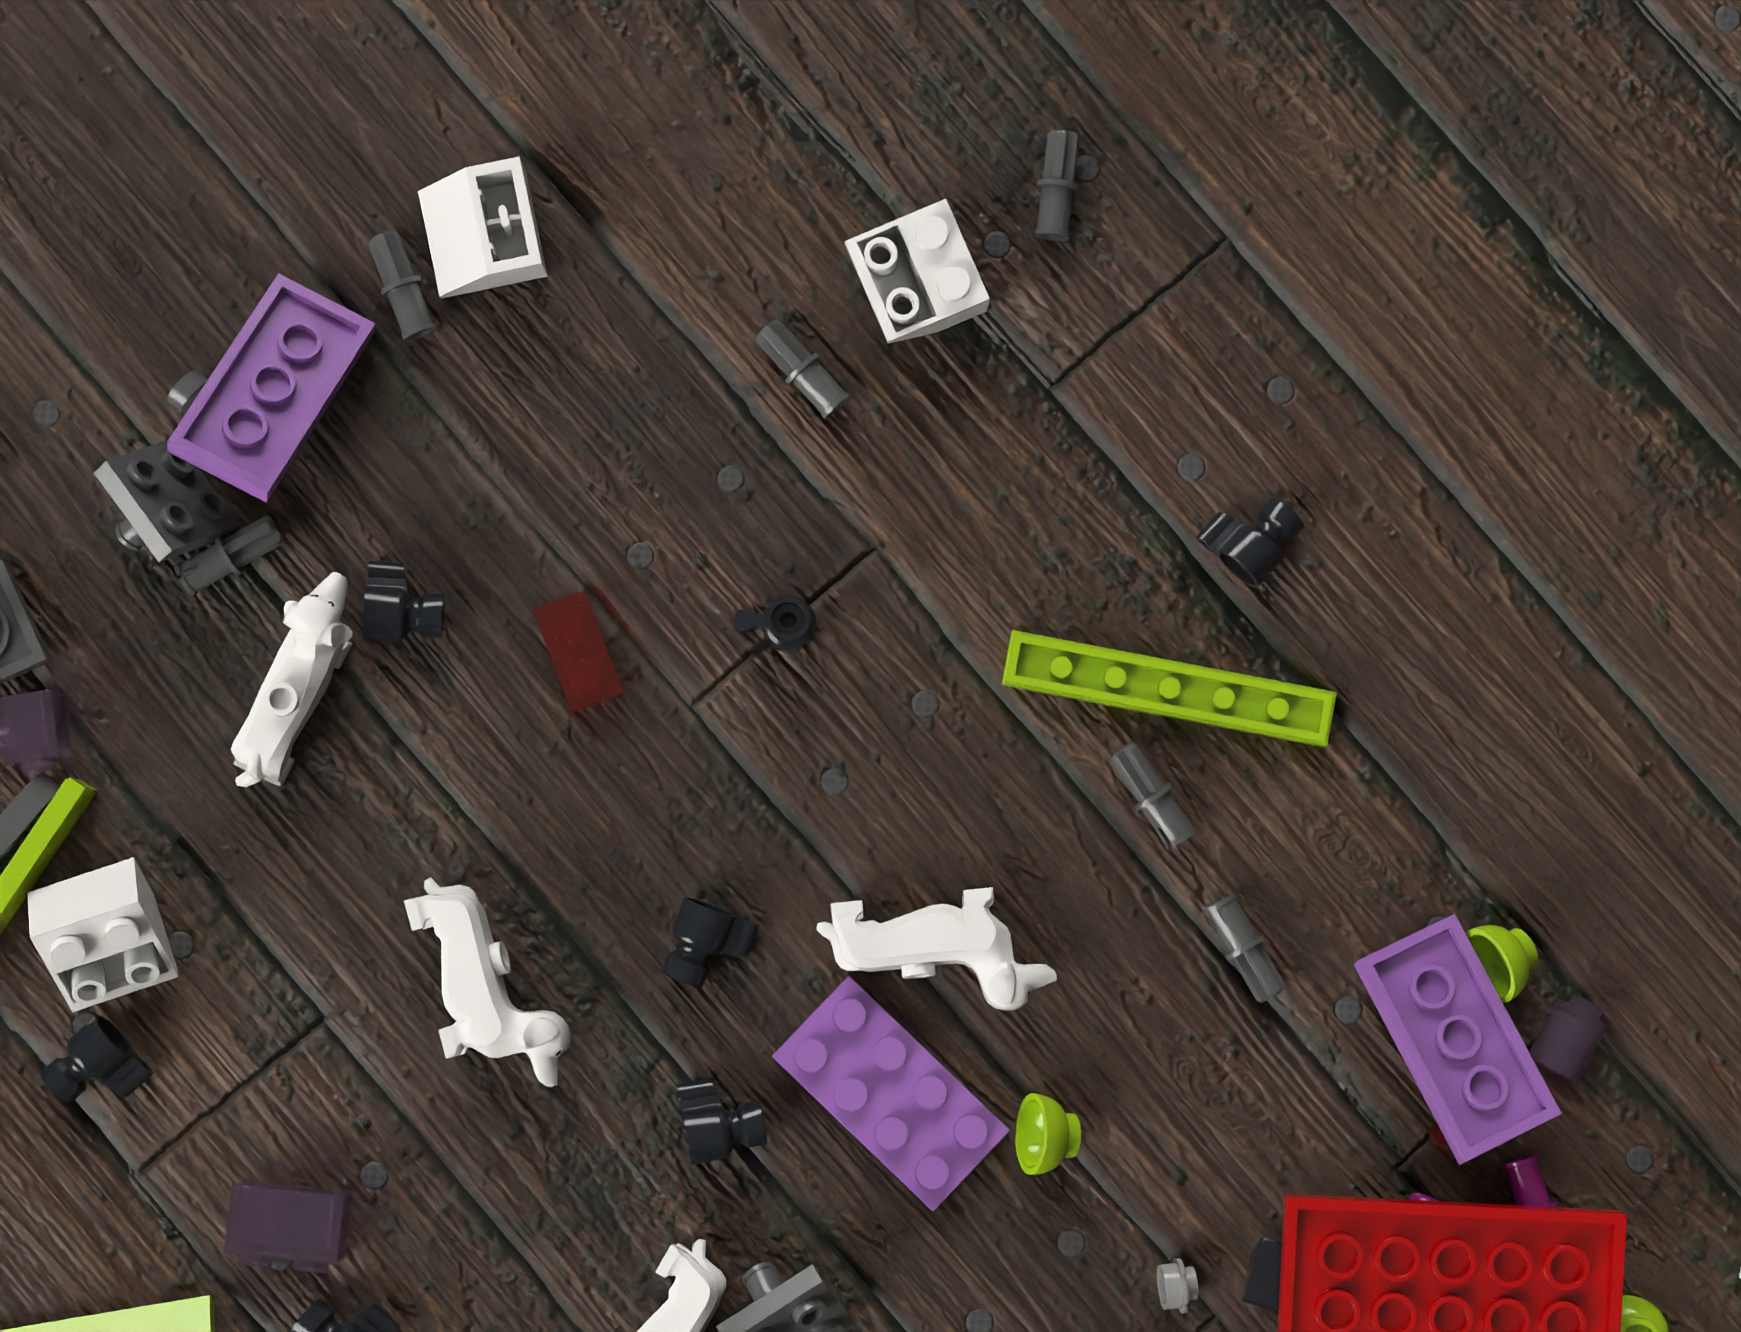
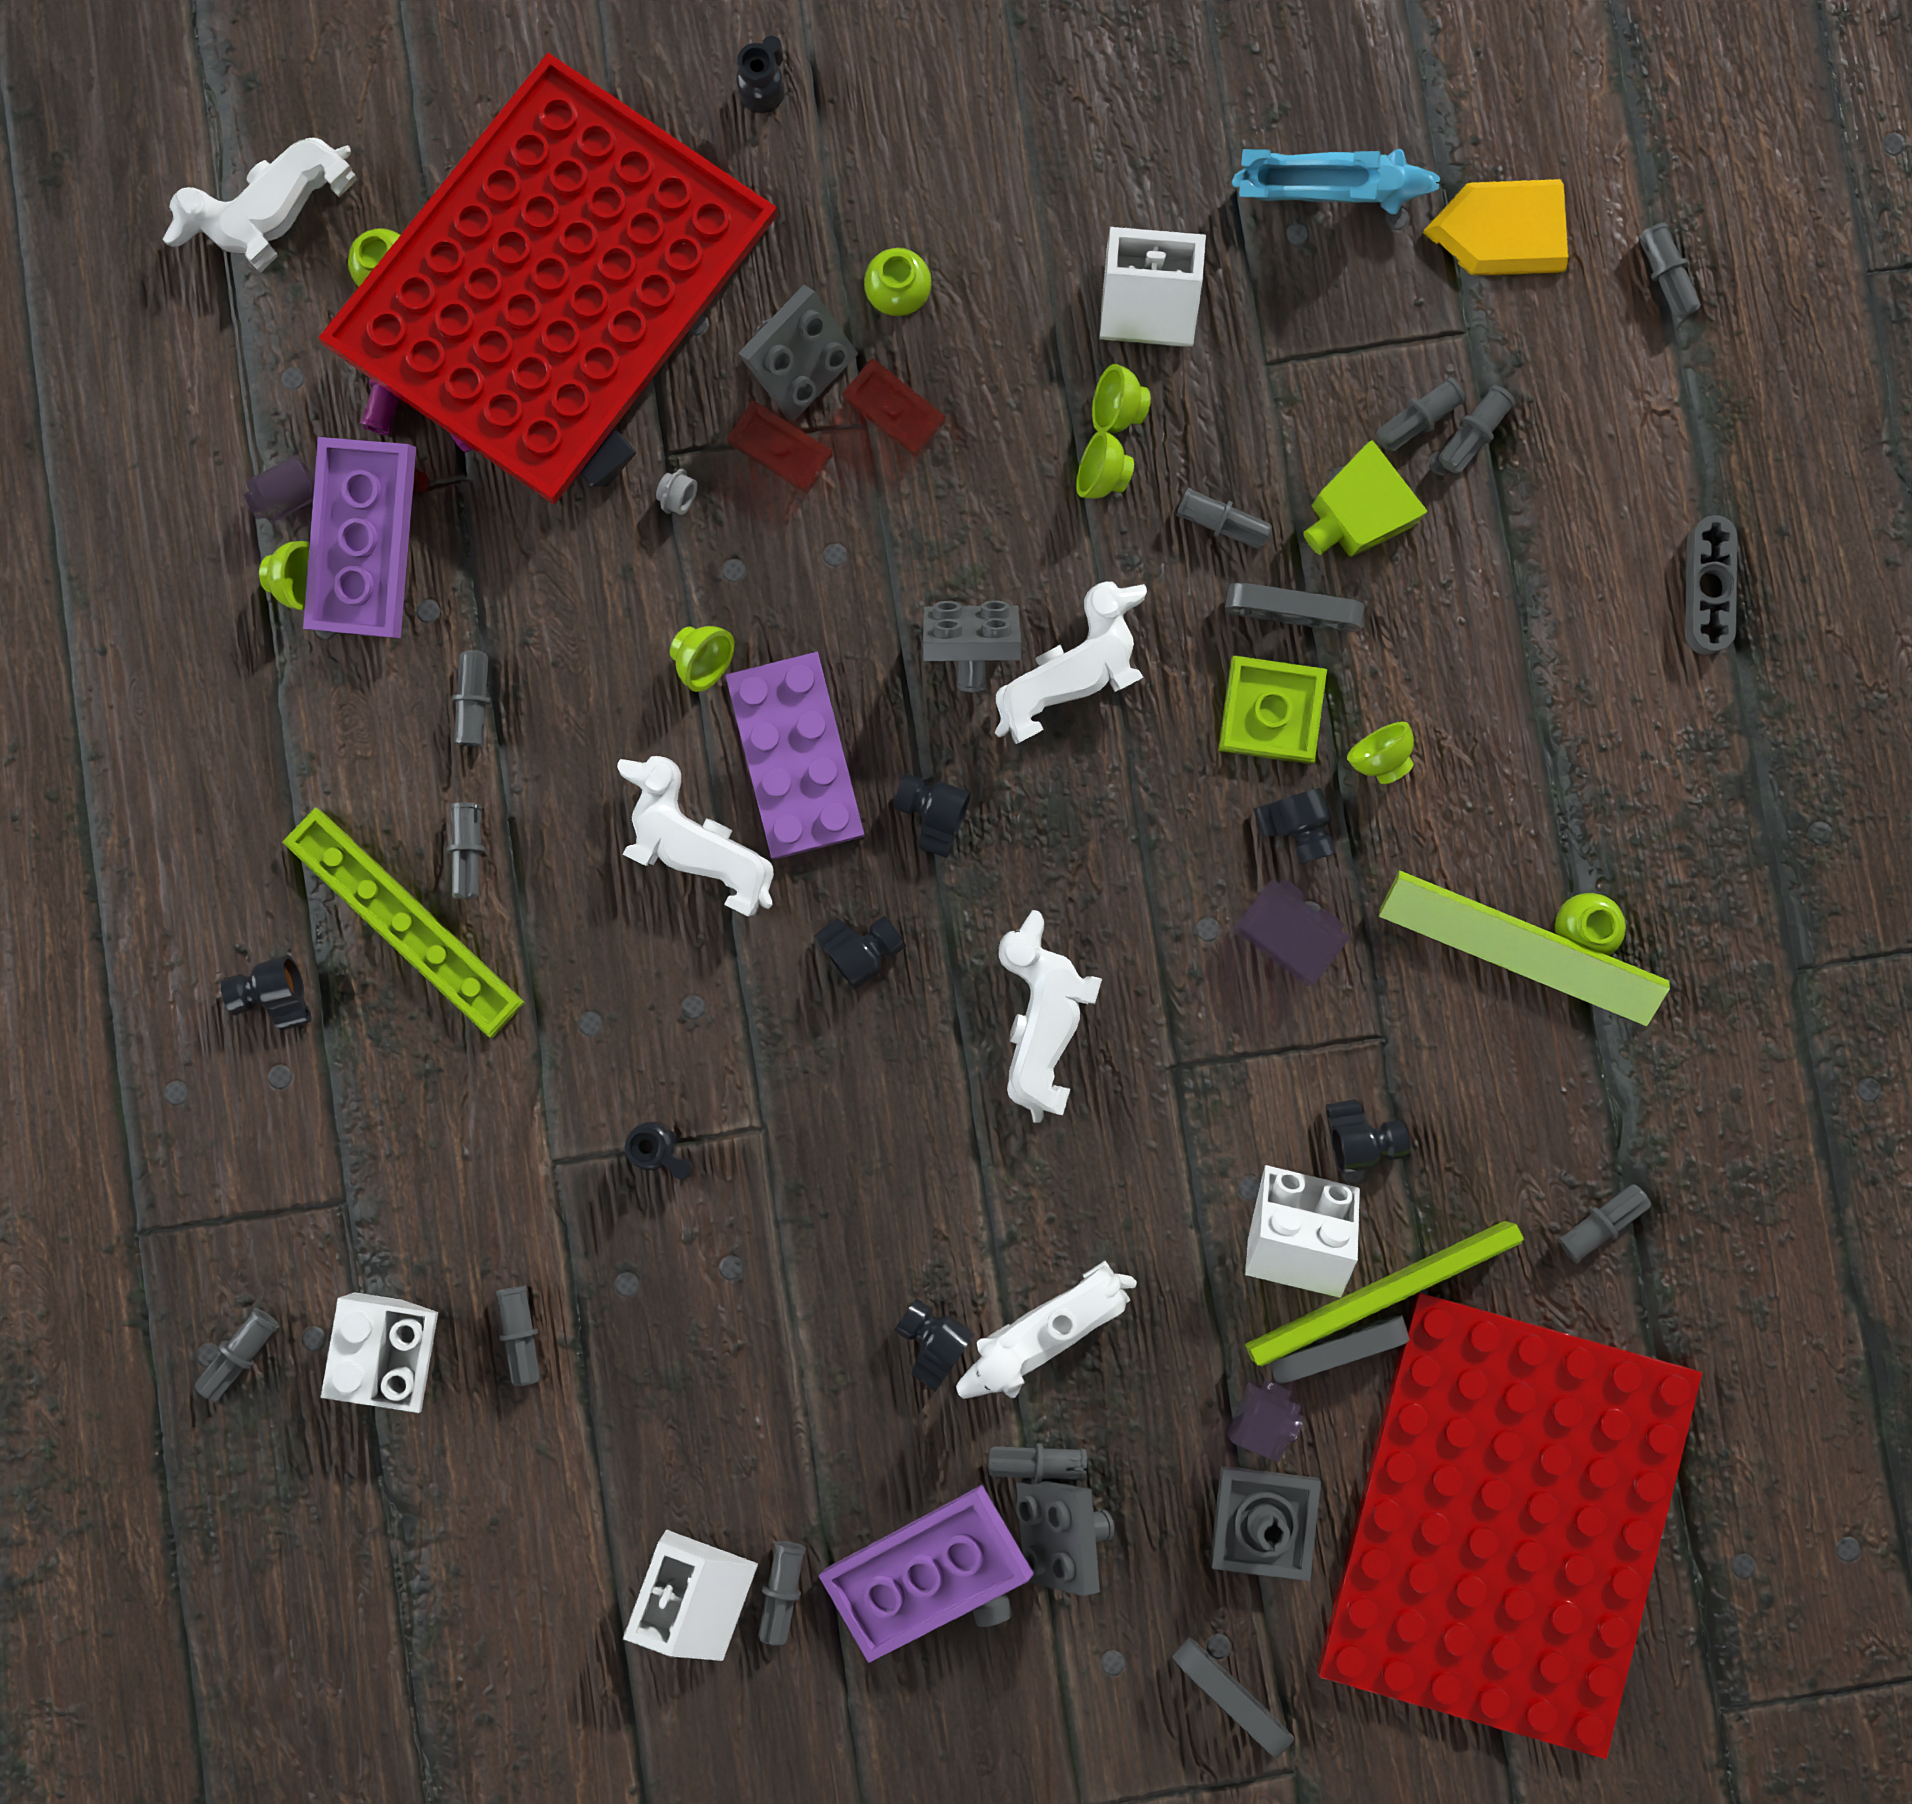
camera: 145 degrees left, 0 degrees up
(578, 651) = (821, 1223): clear red plate -> none

